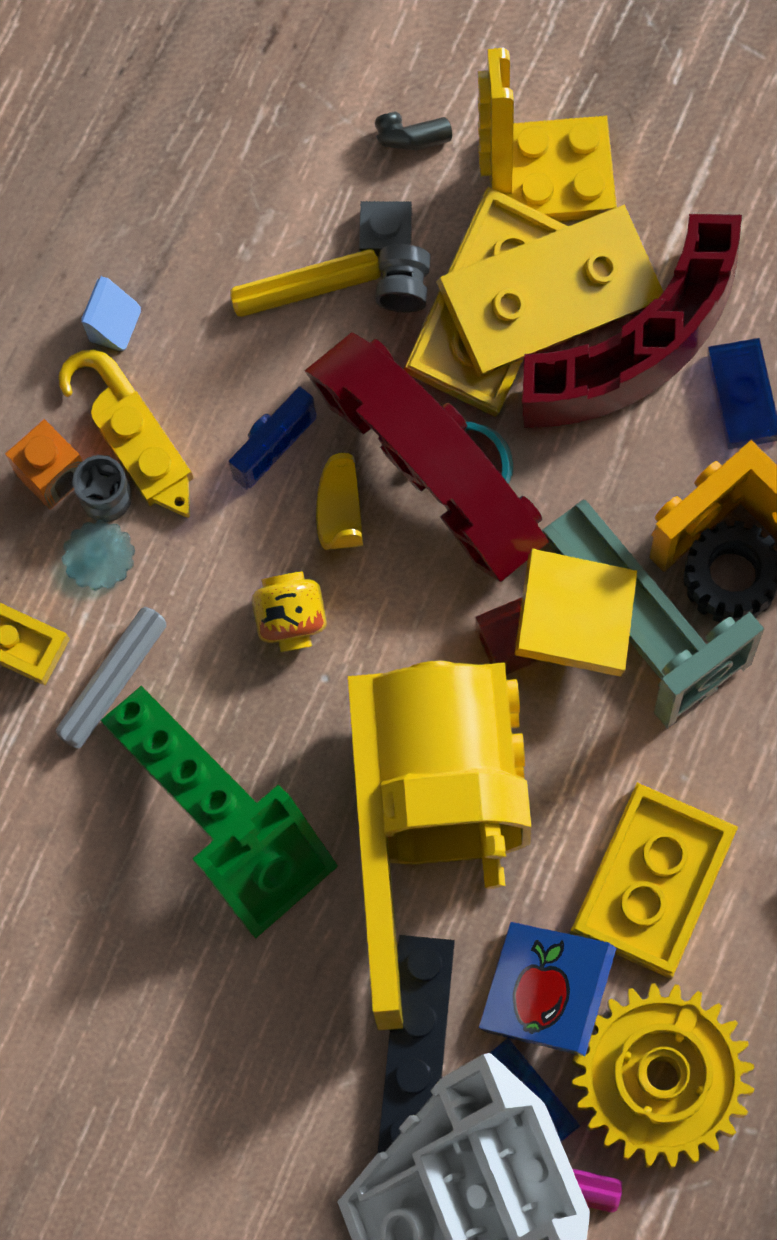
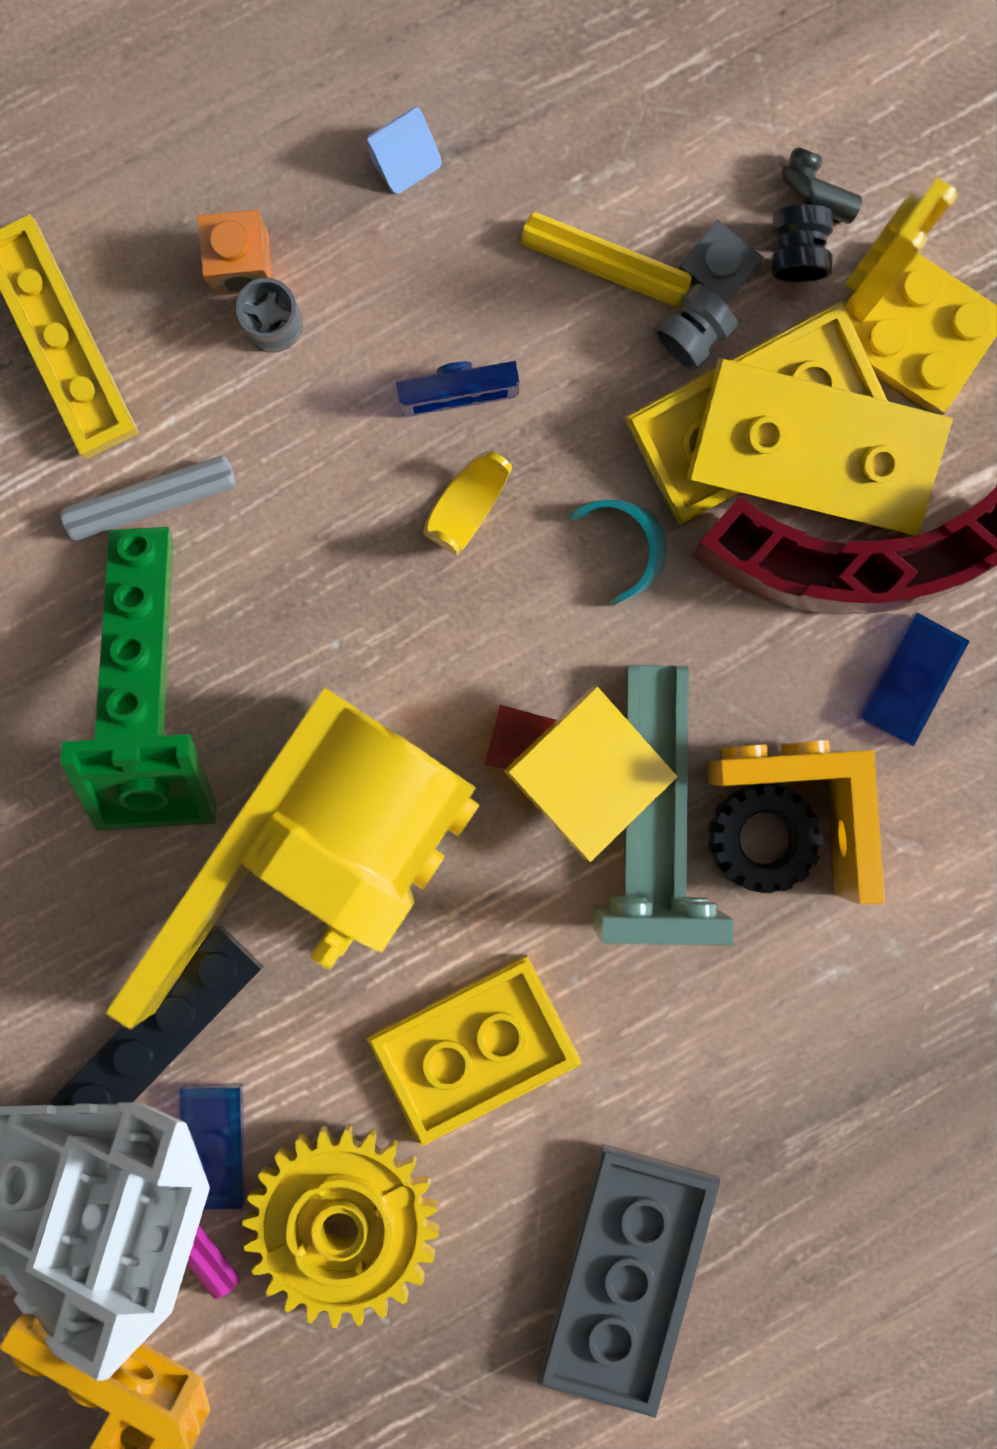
camera: 30 degrees right, 15 degrees up
(98, 555) = (224, 373): clear light blue piece -> none
(133, 433) = (340, 281): yellow plate -> none
(288, 610) = (346, 563): yellow head -> none
(430, 173) = (802, 241): none -> black wheel
(431, 452) = (582, 515): dark red brick -> none
(547, 988) = (303, 1077): blue tile -> none

